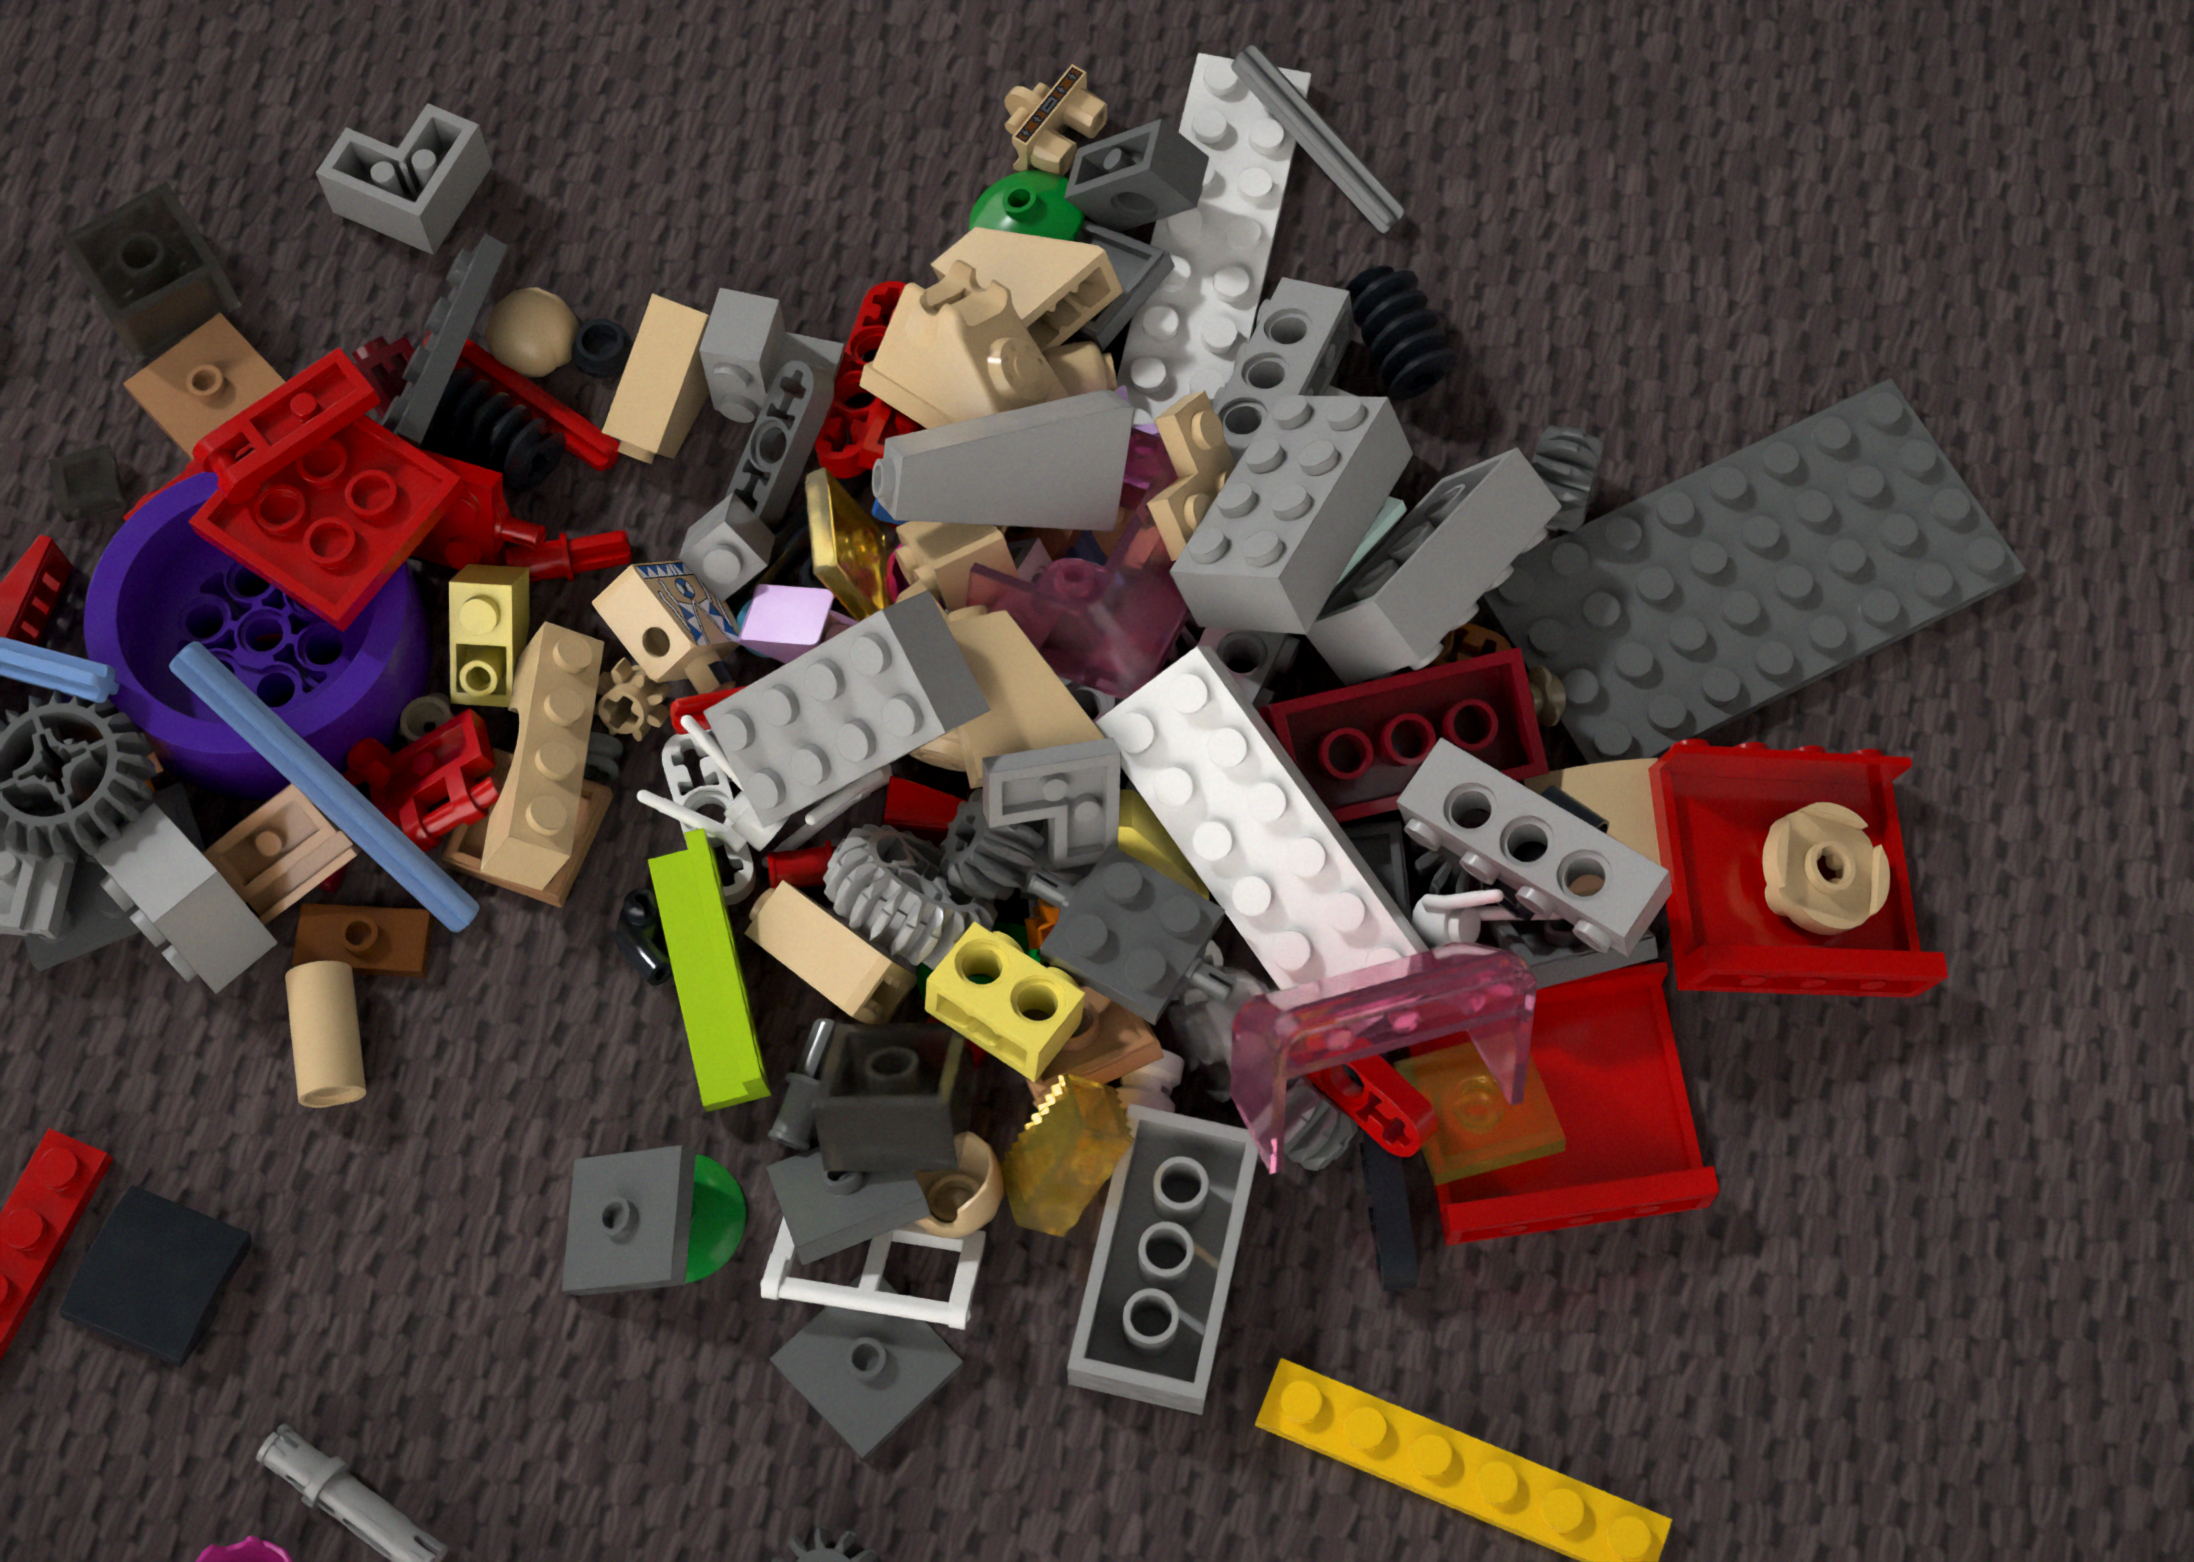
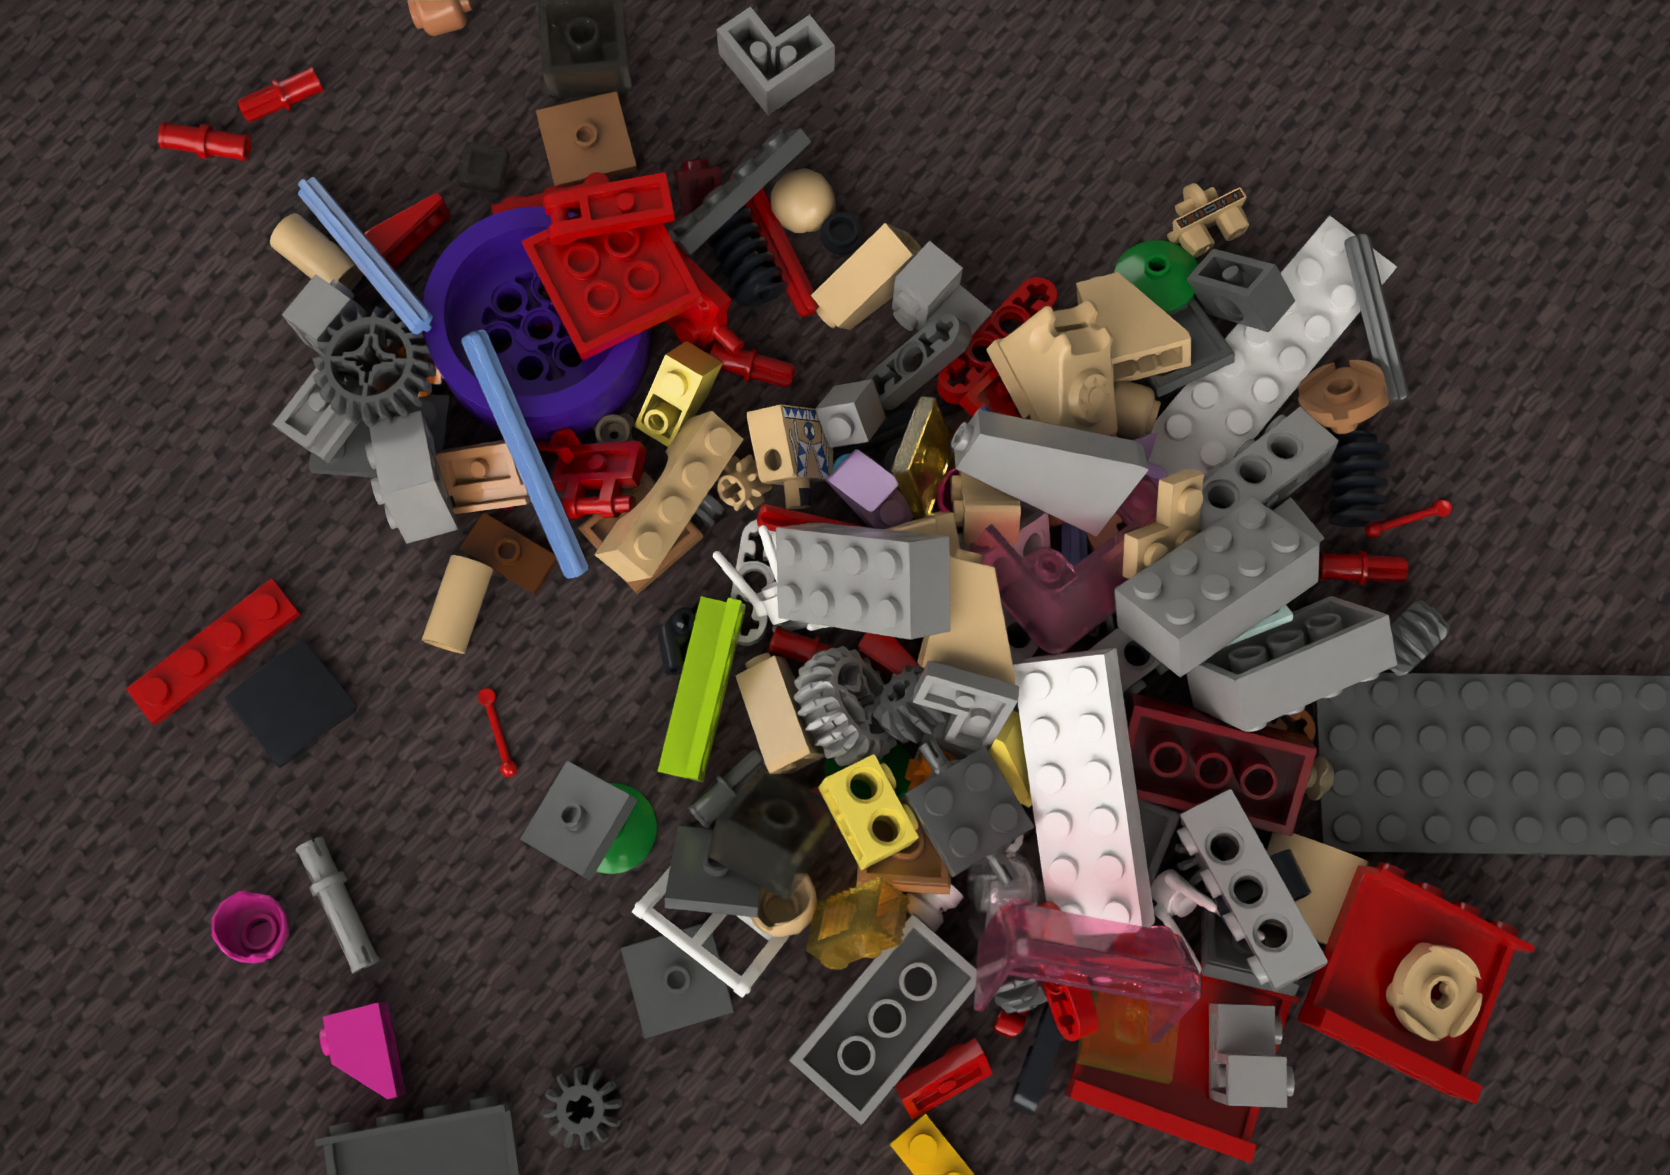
camera: 25 degrees right, 10 degrees up
(426, 1137) = (487, 698): none -> red hinge
(1279, 1300) = (943, 1079): none -> red plate
(1328, 1189) = (1010, 1024): none -> red hand
(1329, 241) = (1343, 395): none -> medium nougat plate
(1462, 431) = (1362, 568): none -> red axle
(1515, 321) = (1440, 508): none -> red hinge
(1641, 1063) = (1244, 1057): none -> light grey brick

